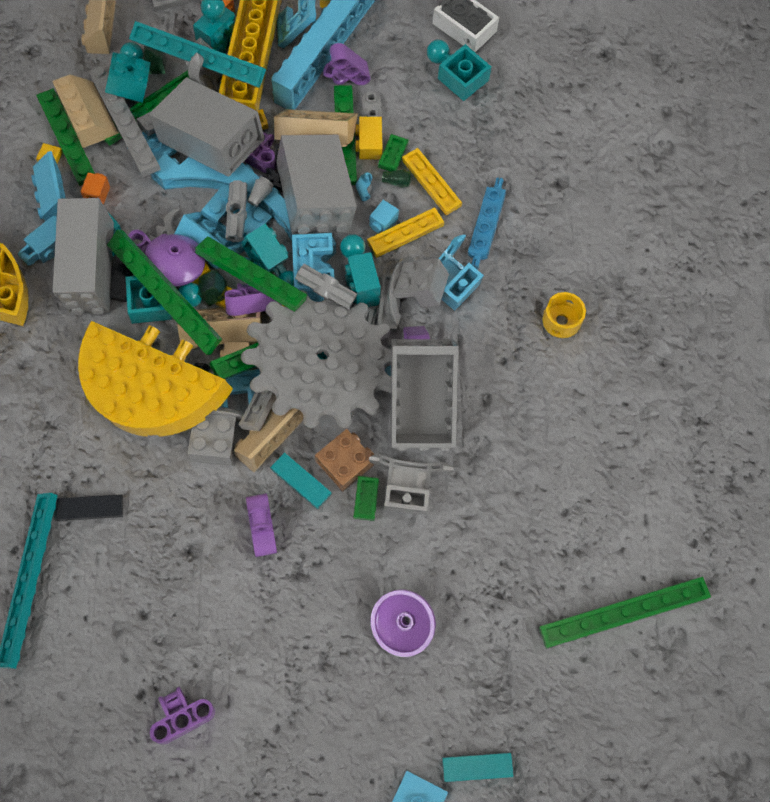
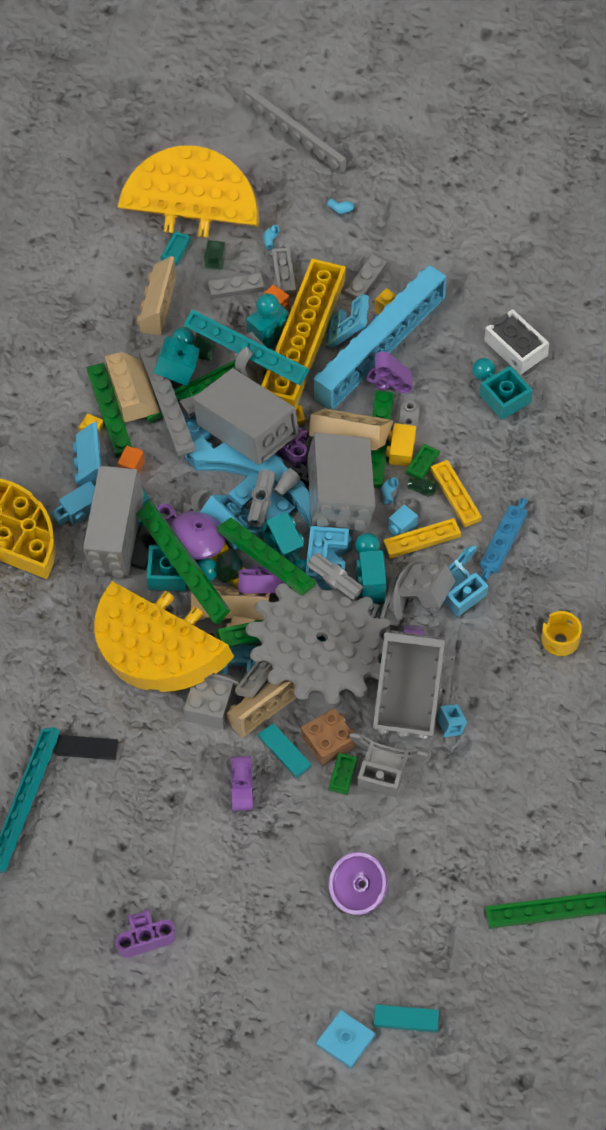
camera: 15 degrees right, 10 degrees down
(469, 423) = (451, 720): none -> medium azure brick

